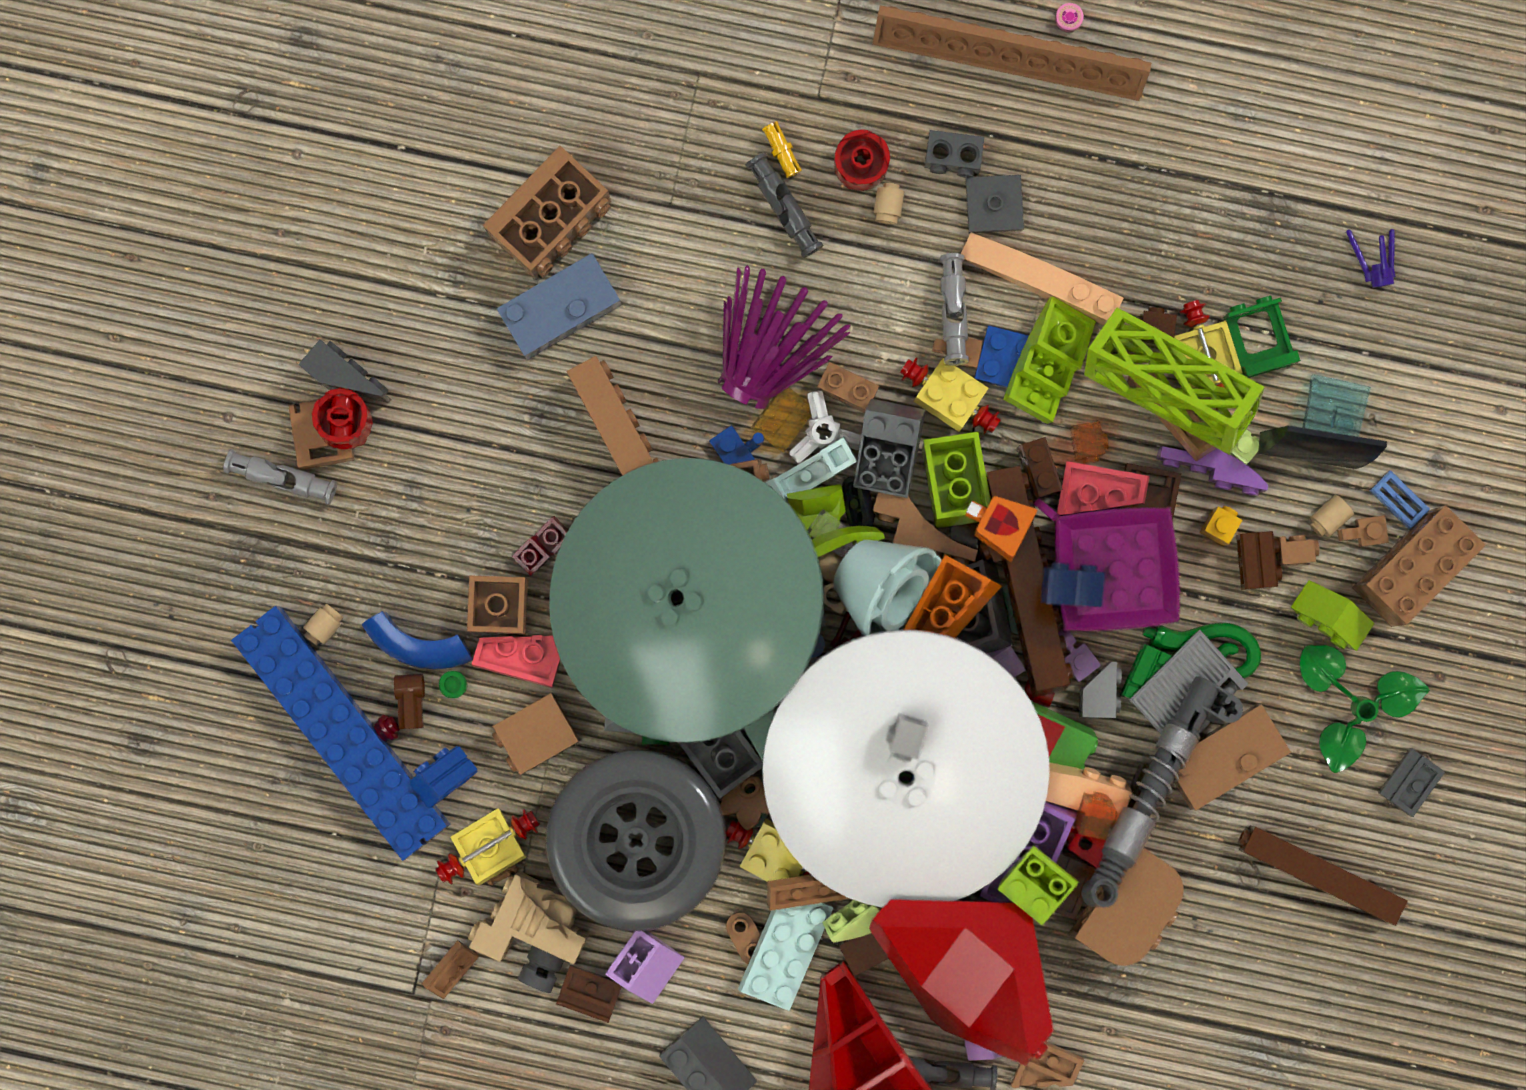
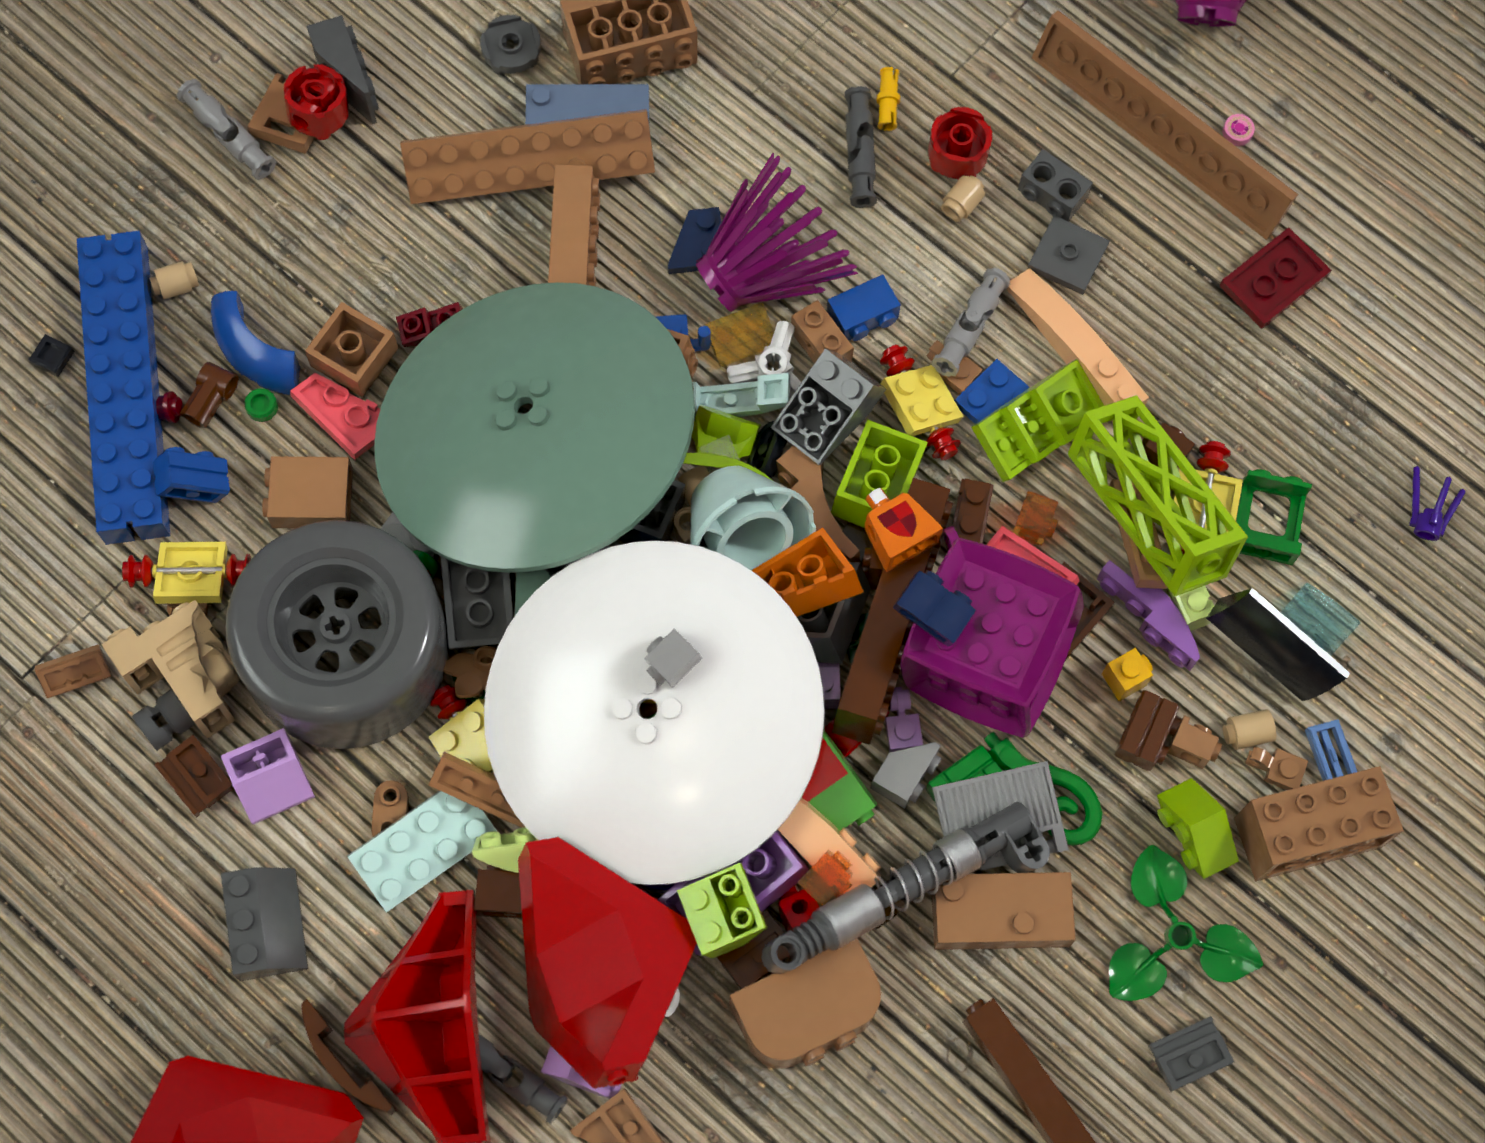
camera: 25 degrees right, 15 degrees down
(268, 737) = (51, 355): none -> black tile
(441, 273) = (513, 60): none -> dark grey plate
(534, 368) = (526, 155): none -> medium nougat plate
(703, 357) = (694, 239): none -> dark blue wing
(864, 344) = (864, 308): none -> blue brick
(1164, 133) = (1275, 278): none -> dark red plate

